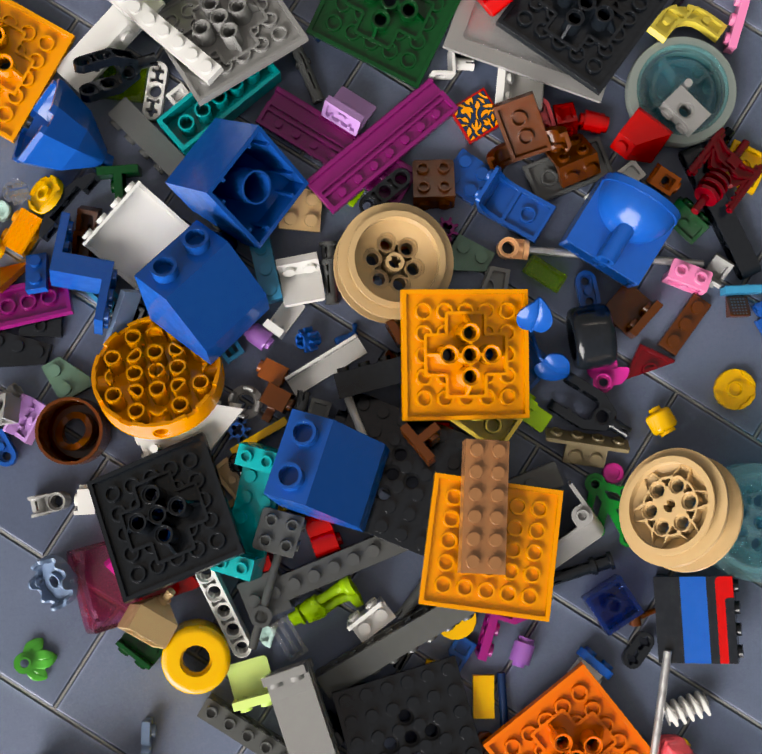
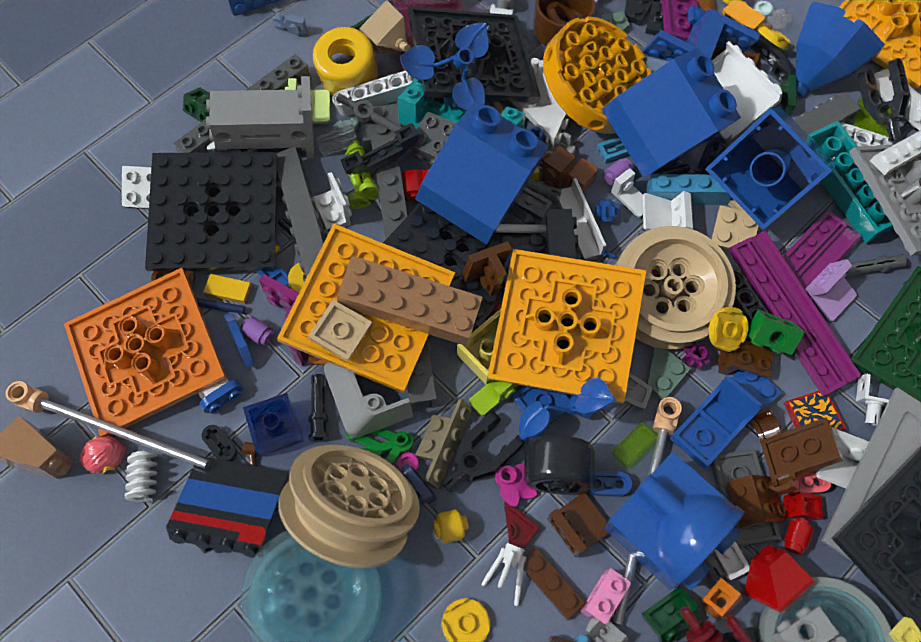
camera: 105 degrees right, 20 degrees down
(171, 517) = (473, 44): none -> blue plant
(310, 582) = (382, 155): none -> black slope
(418, 161) = (764, 325): none -> green brick
(427, 204) = (728, 328): none -> yellow tile
(529, 563) = (340, 330): none -> tan plate
(530, 670) = (238, 339): none -> blue tile
(631, 460) = (423, 492): none -> dark blue plate
(674, 361) = (512, 556): none -> white plant

